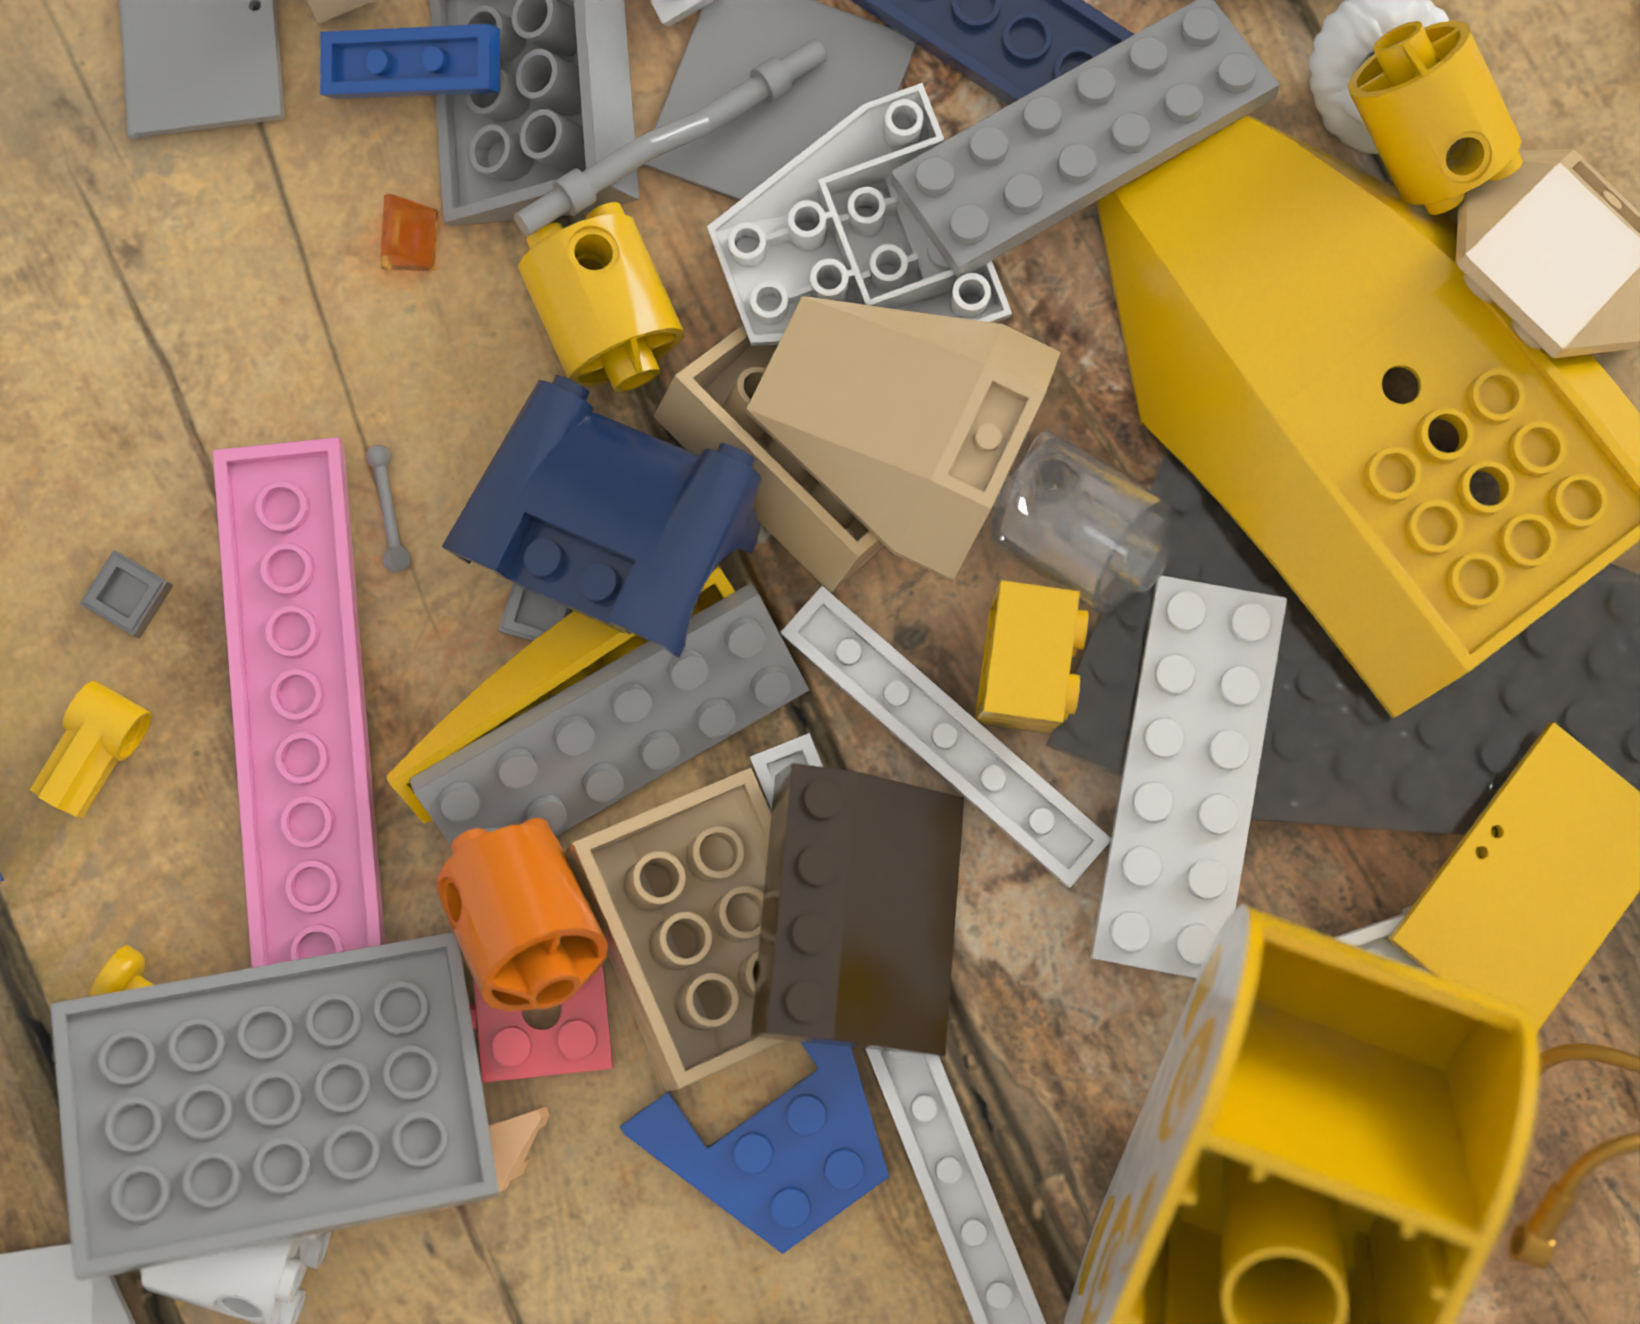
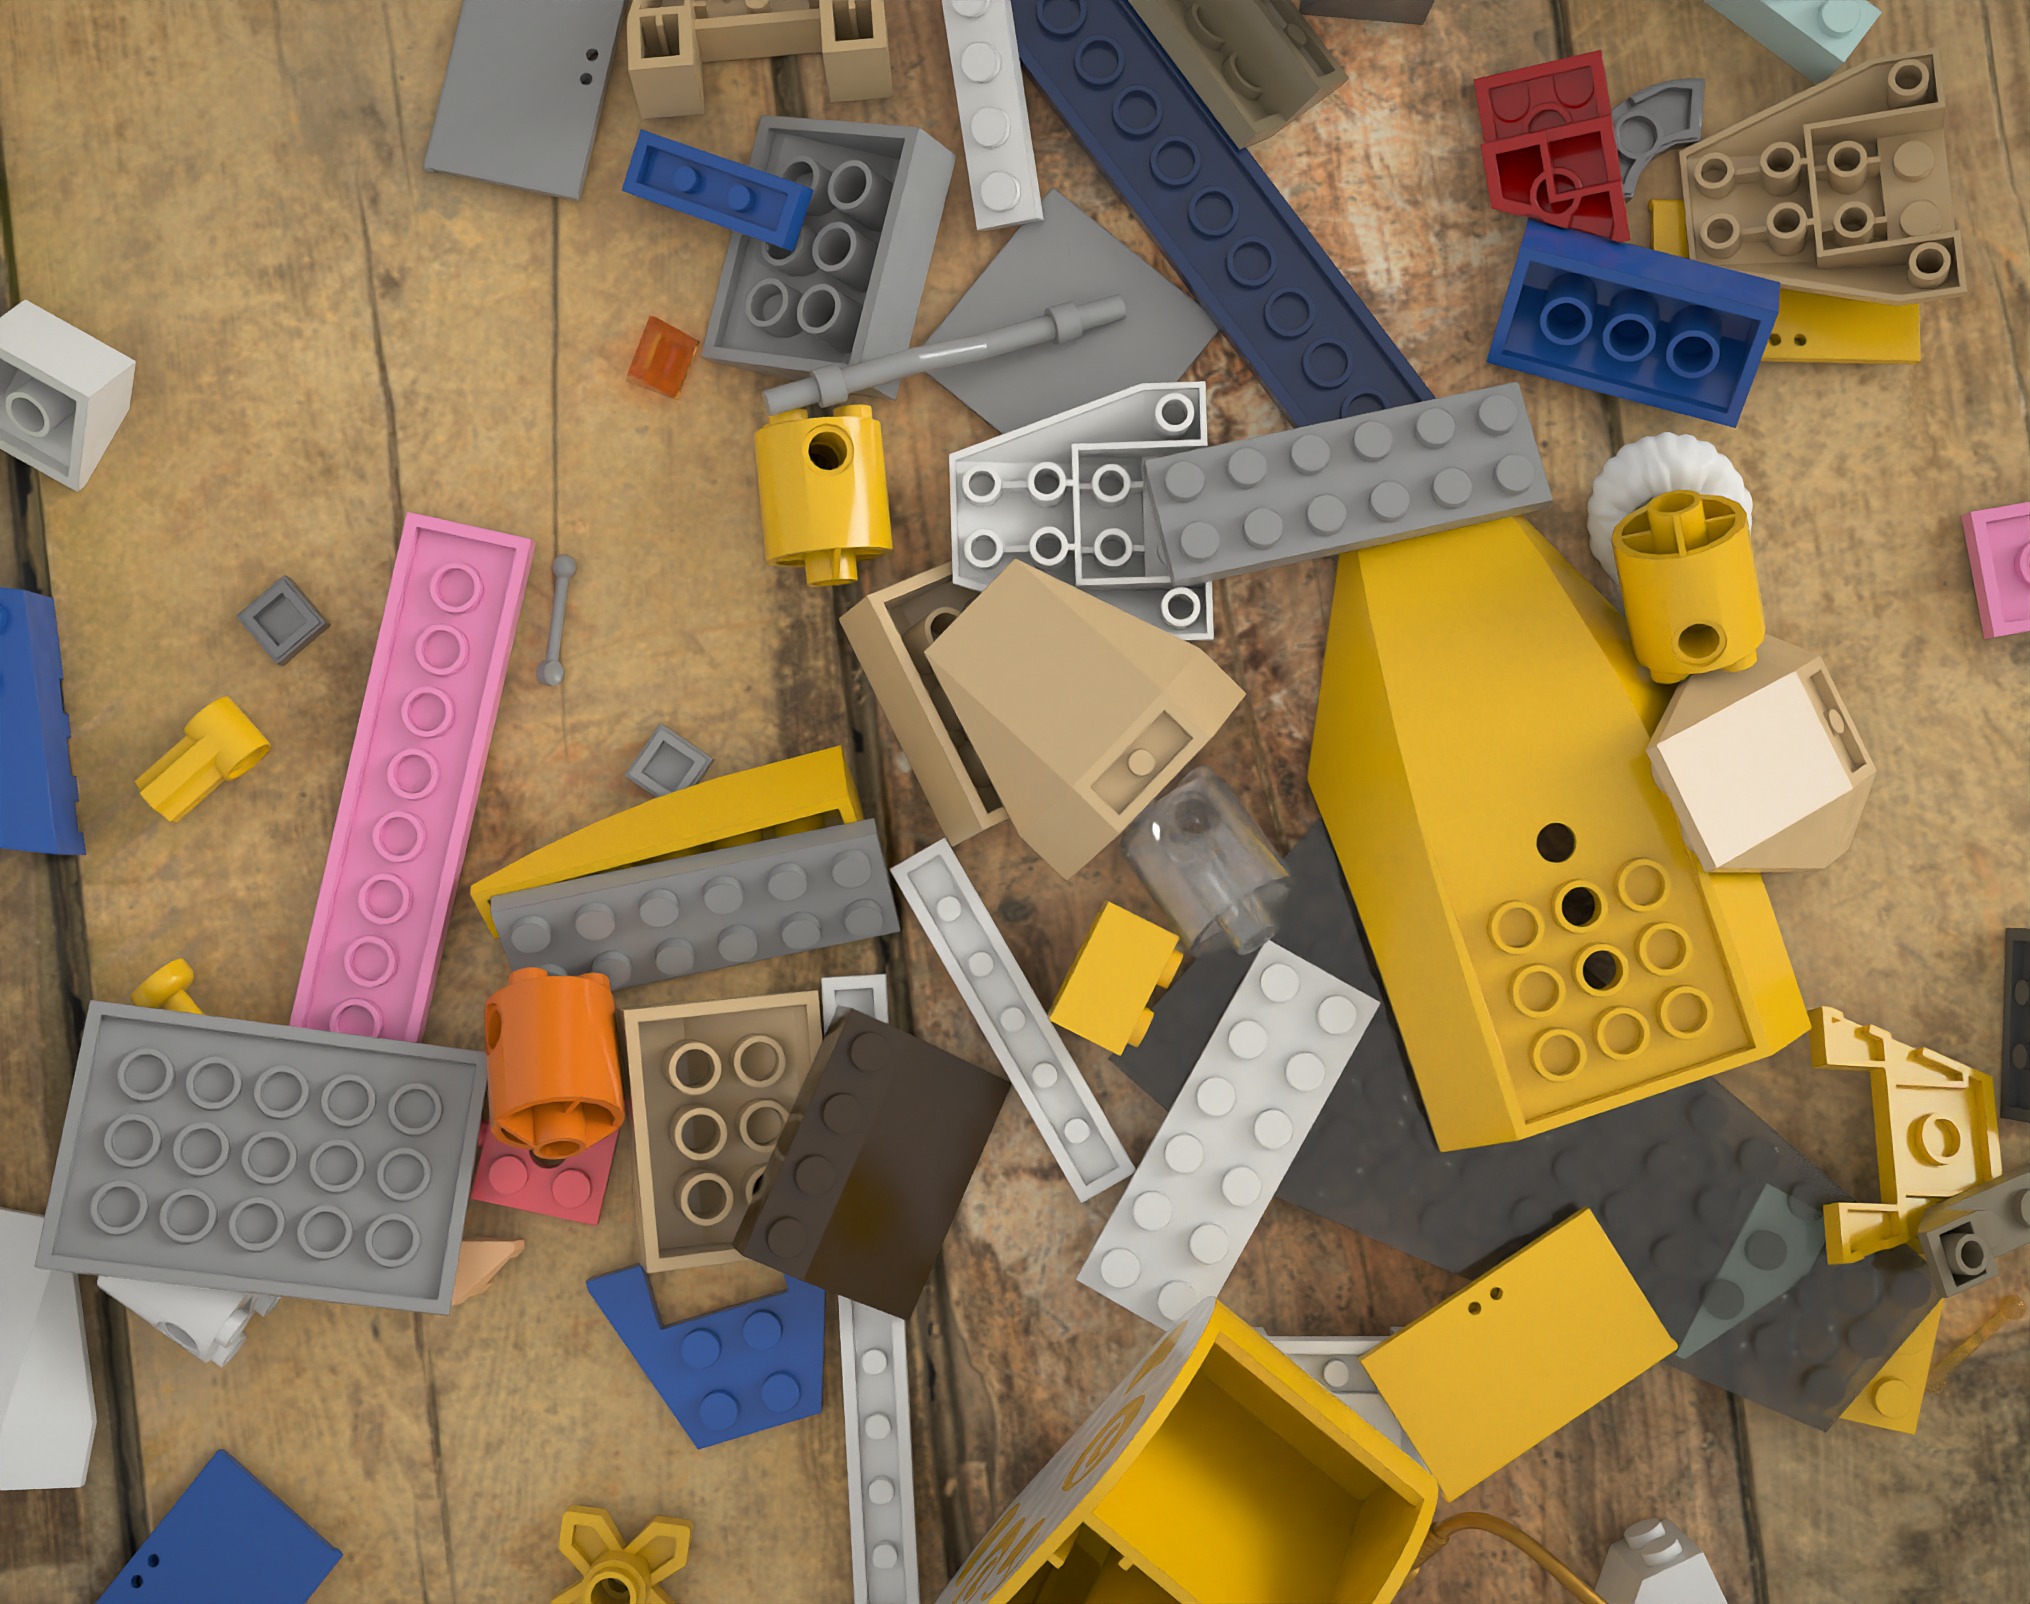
camera: 20 degrees right, 5 degrees up
(607, 515) = (758, 709): dark blue piece -> none

